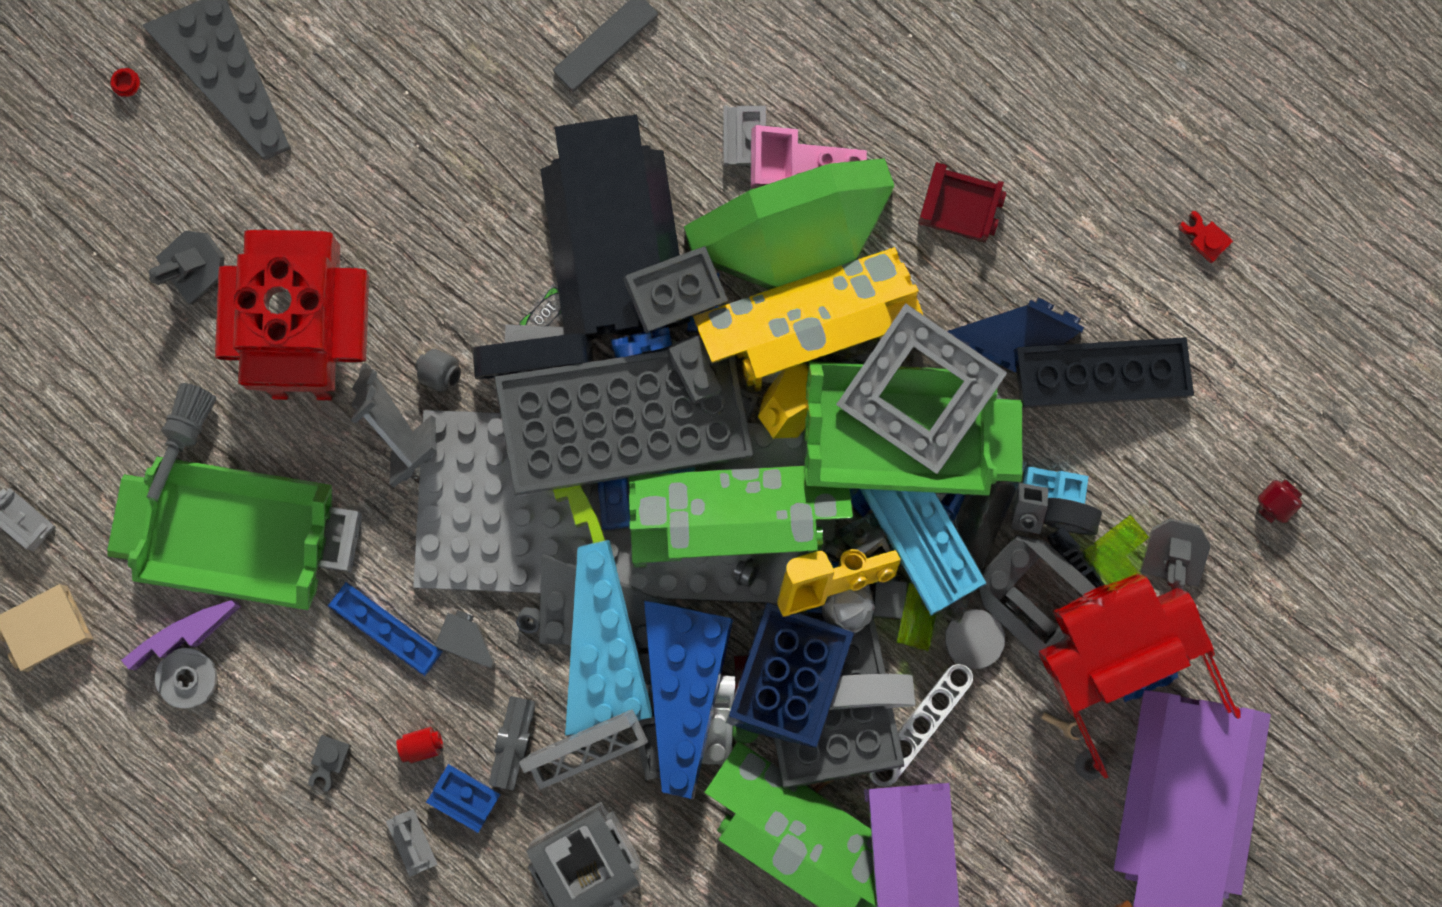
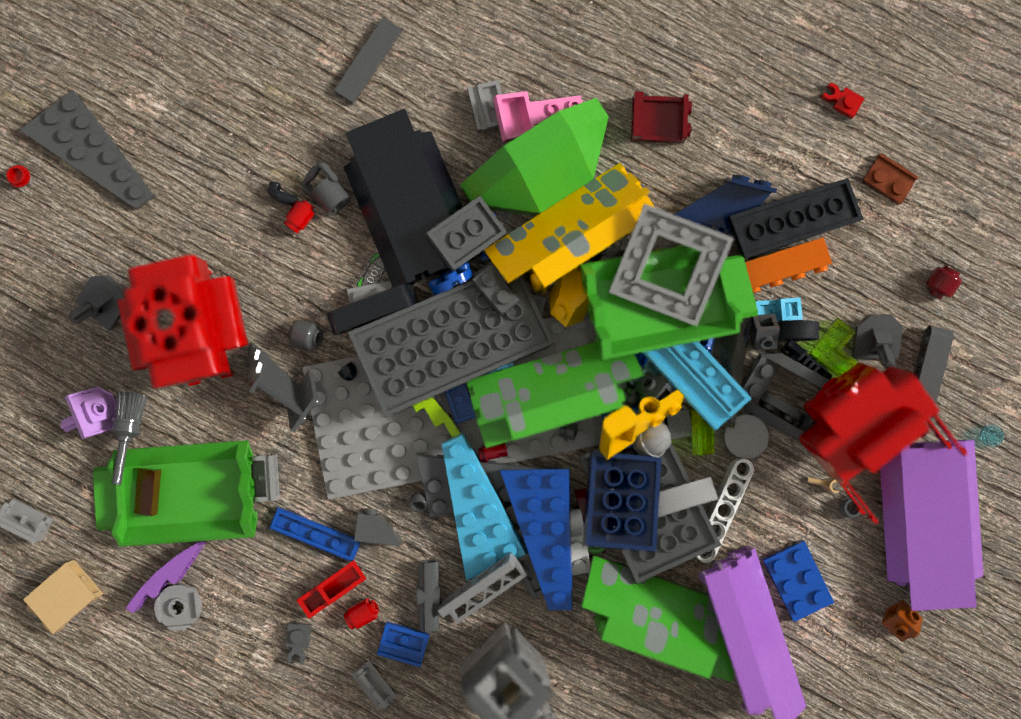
camera: 20 degrees left, 5 degrees up
(142, 401) = (90, 411): none -> lavender piece
(185, 520) = (147, 491): none -> reddish brown slope
(388, 703) = (331, 589): none -> red slope
(452, 188) = (279, 196): none -> black arm
(468, 217) = (299, 216): none -> red brick
(481, 429) = (348, 372): none -> black hinge
(512, 197) = (329, 192): none -> dark grey piece
(640, 576) = (492, 452): none -> dark red pin
(998, 844) = (798, 580): none -> blue plate
(1079, 429) = (788, 263): none -> orange wedge
(1230, 618) = (933, 360): none -> dark grey beam
(1242, 352) = (889, 179): none -> copper plate
(1298, 716) = (992, 435): none -> clear light blue plate

